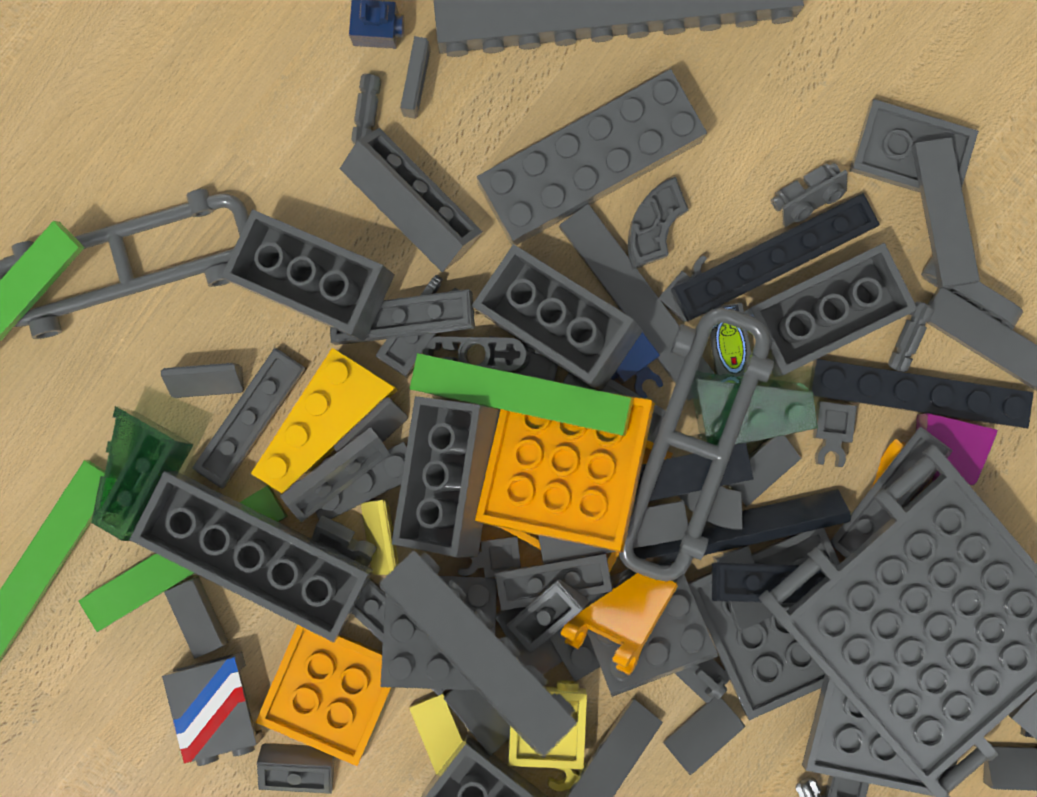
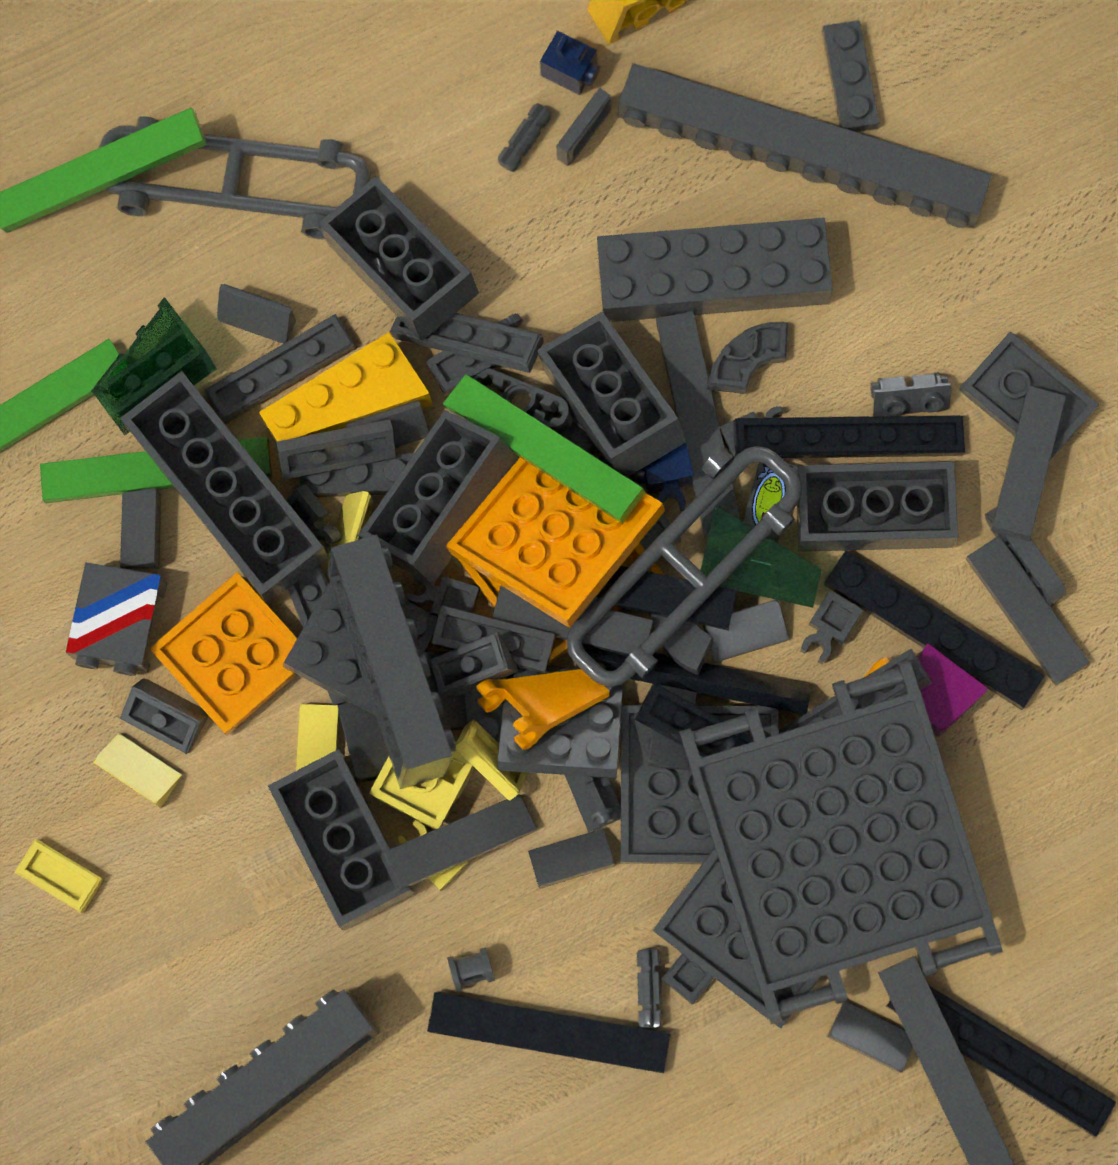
camera: 30 degrees right, 10 degrees down
(410, 199) = (526, 233): dark grey brick -> none
(588, 684) = (482, 752): none -> light yellow tile
(911, 337) = (946, 569): dark grey axle -> none

